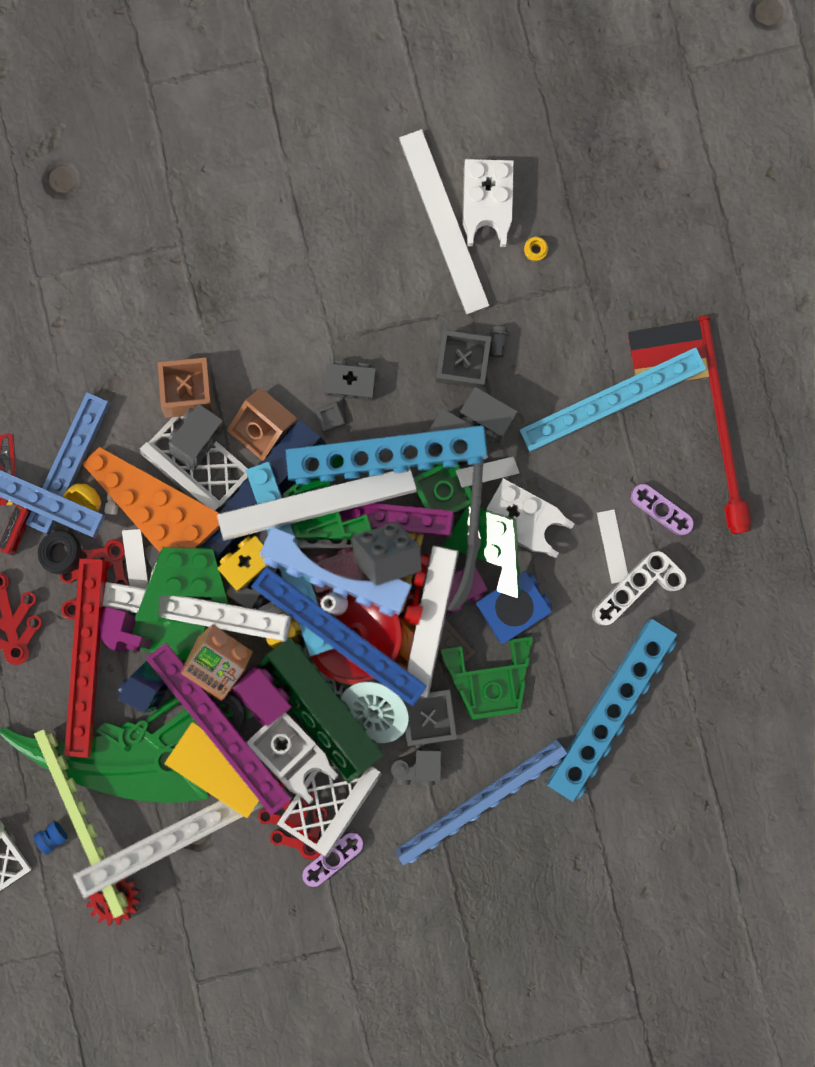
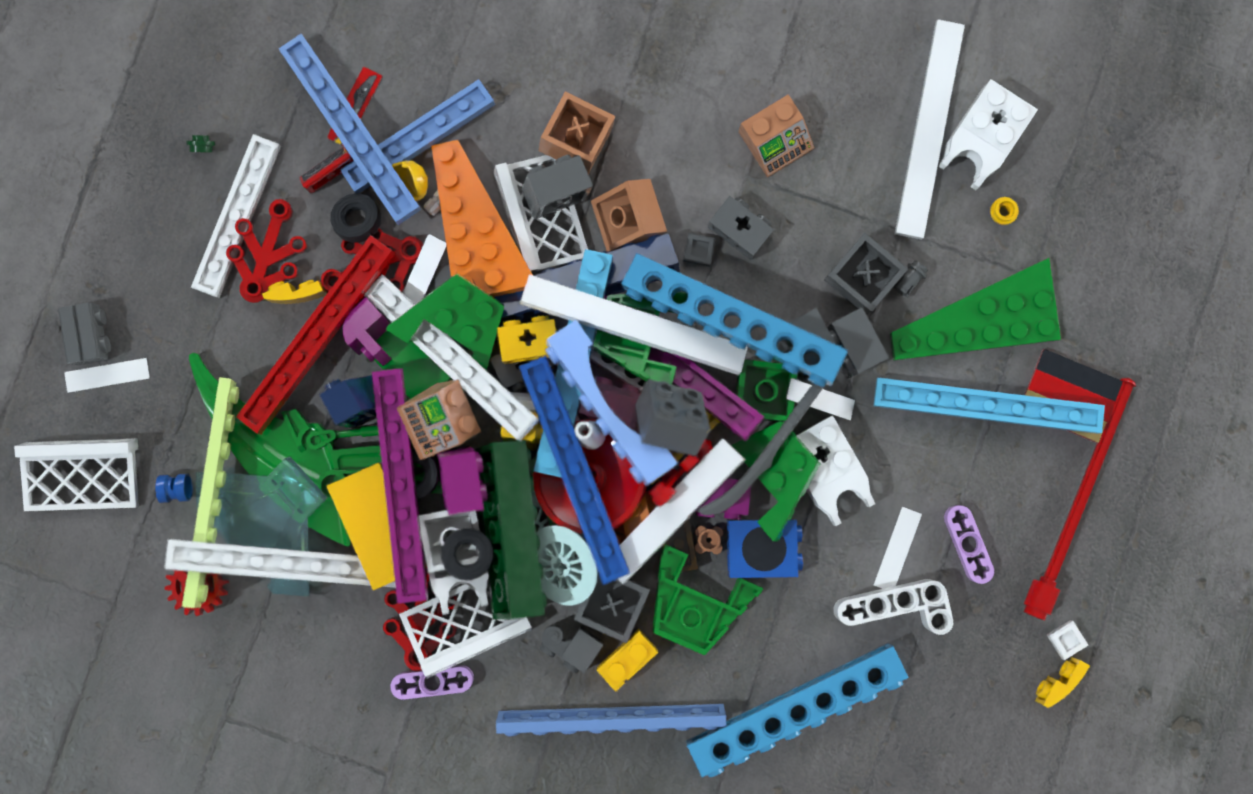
camera: 35 degrees right, 0 degrees up
(43, 640) = (287, 294): none -> yellow slope
(133, 812) = (269, 514): none -> clear light blue plate
(310, 758) = (461, 571): none -> black tyre
(334, 297) = (777, 135): none -> nougat slope
(465, 751) = (627, 659): none -> yellow brick
(471, 619) = (702, 534): none -> nougat plate
(580, 328) = (999, 316): none -> green wing
(776, 534) = (1067, 640): none -> white tile
(788, 577) = (1053, 690): none -> yellow slope

